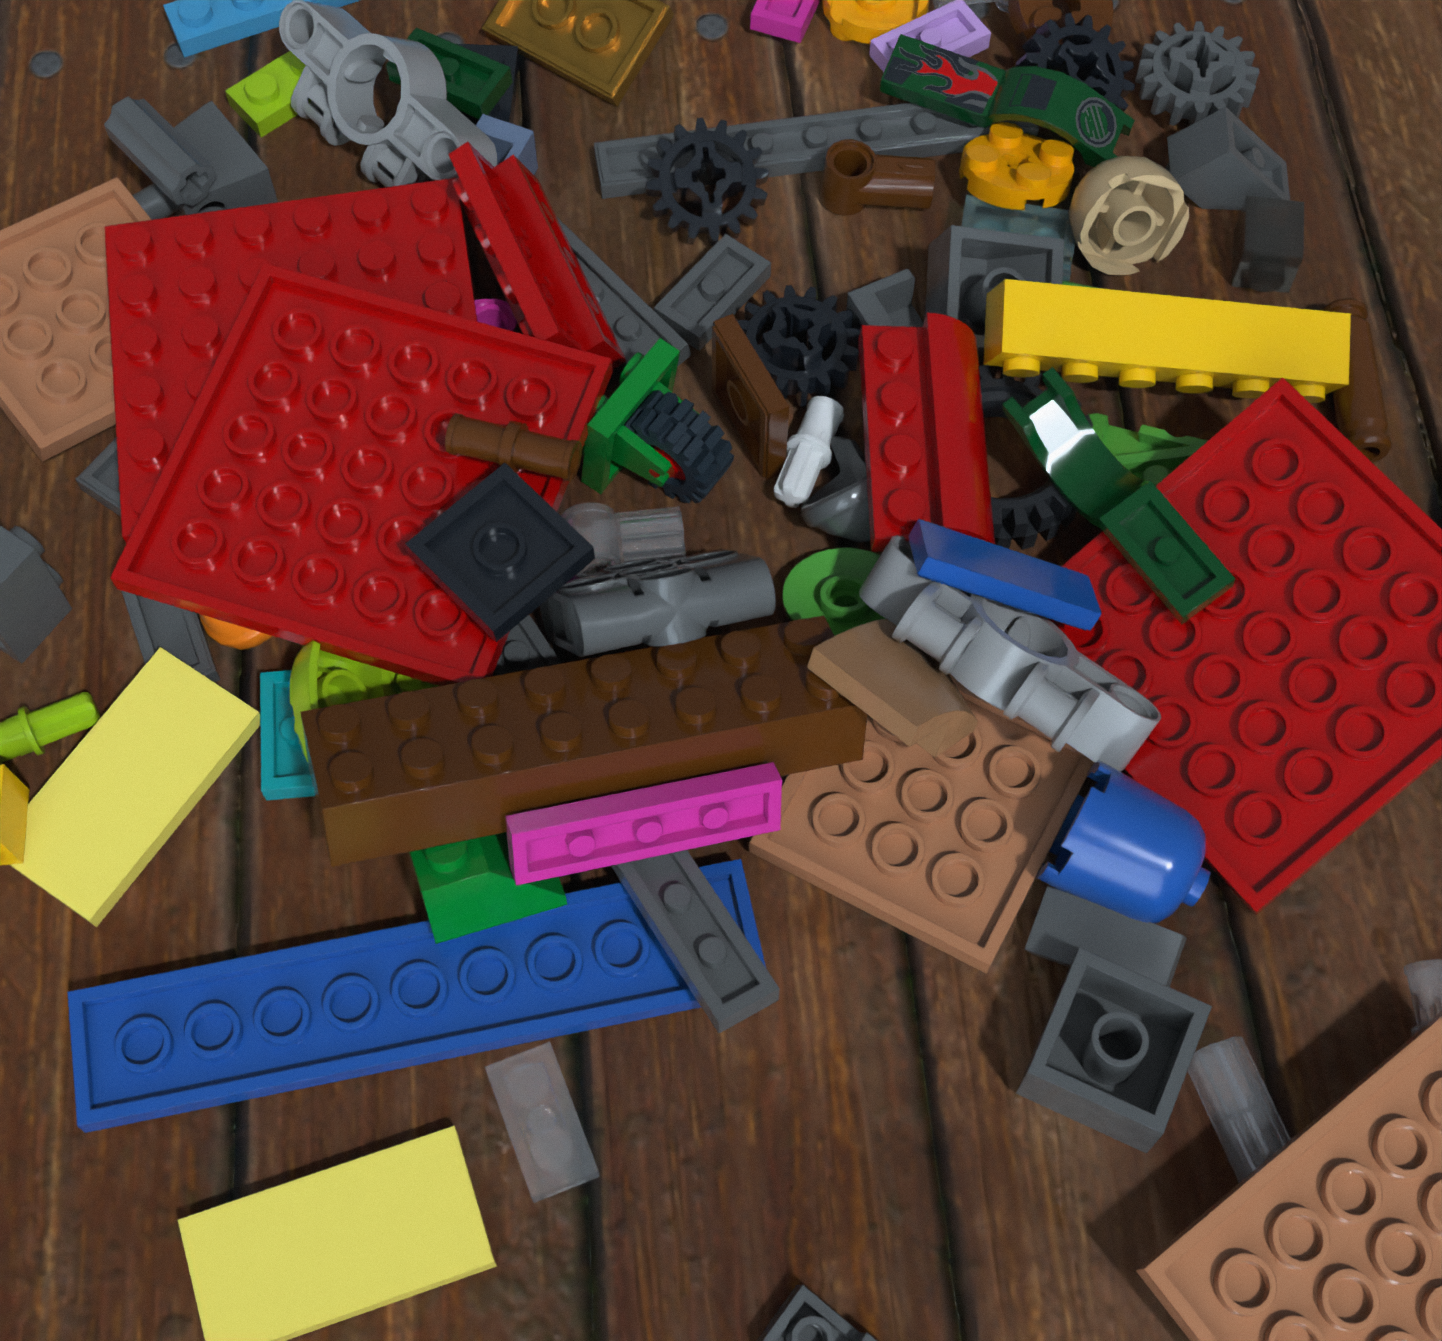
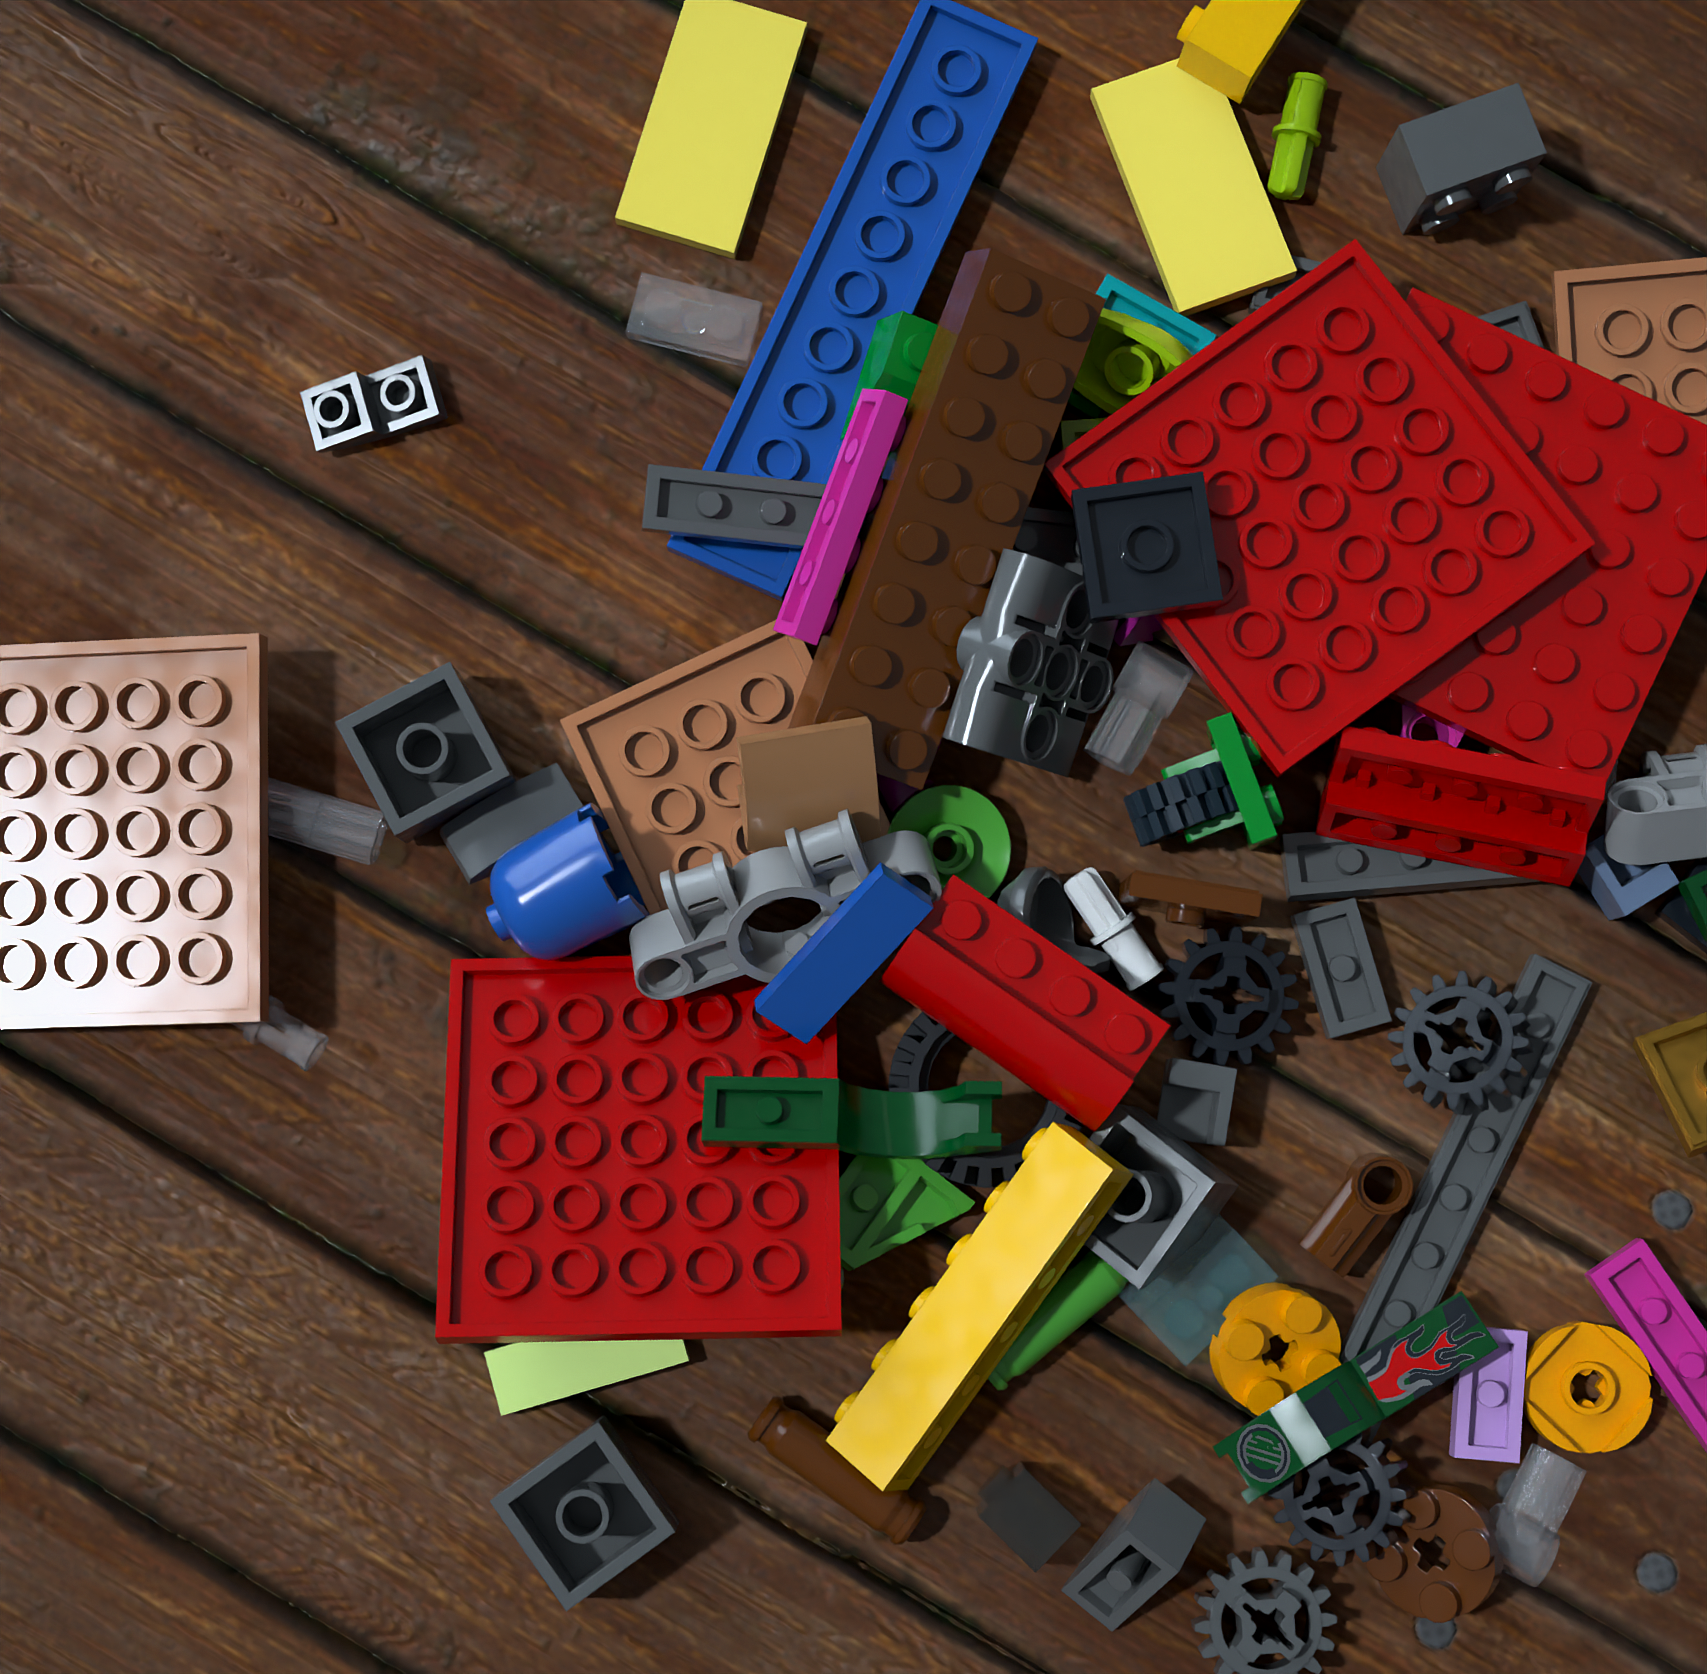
camera: 125 degrees right, 20 degrees up
(513, 446) = (1238, 622): reddish brown pin -> none
(1127, 214) = (1153, 1402): tan cylinder -> none

